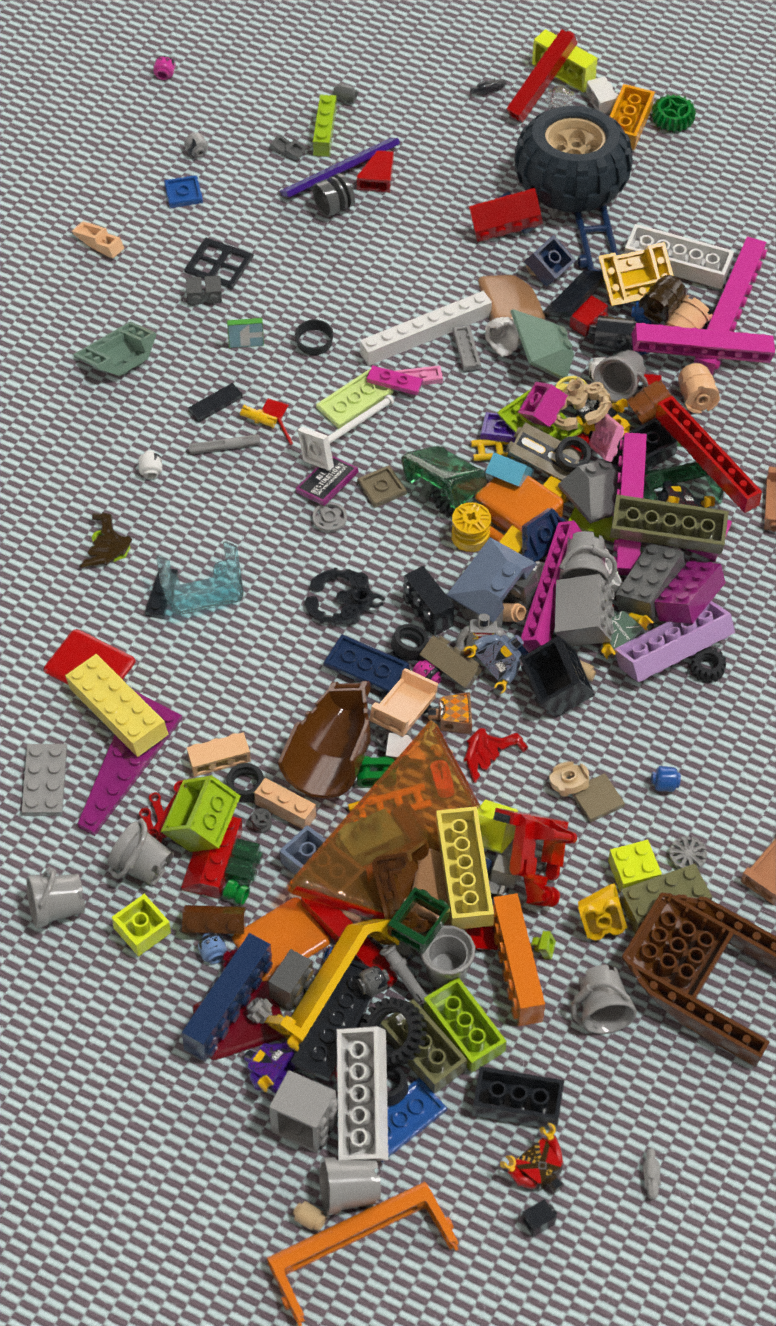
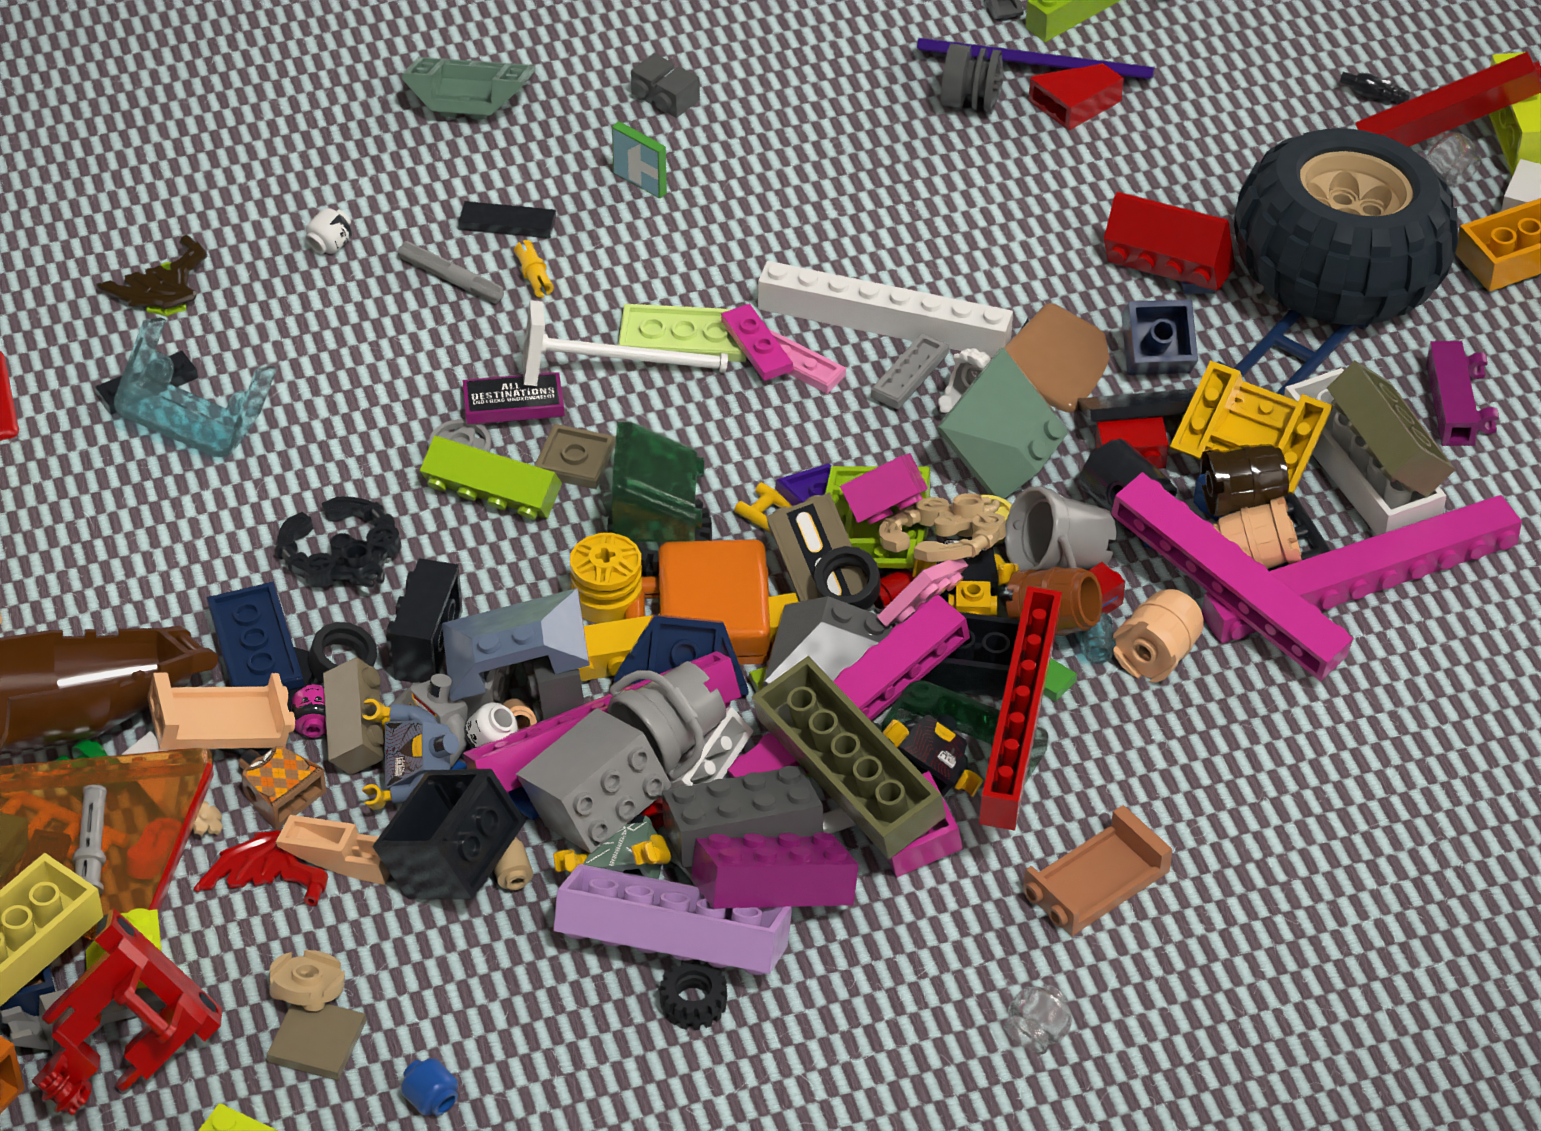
camera: 45 degrees right, 10 degrees down
(220, 262) = (763, 62): black window -> none
(277, 409) = (567, 279): red piece -> none
(314, 324) = (732, 208): black tyre -> none
(367, 521) = (490, 477): none -> lime brick
(442, 800) = (89, 856): none -> light grey pin
(508, 469) = (743, 541): medium azure brick -> none
(510, 719) = (333, 847): none -> light nougat slope
(514, 622) = (489, 724): none -> white head
(676, 205) = (1453, 394): none -> magenta brick
(695, 236) = (1389, 430): none -> olive brick

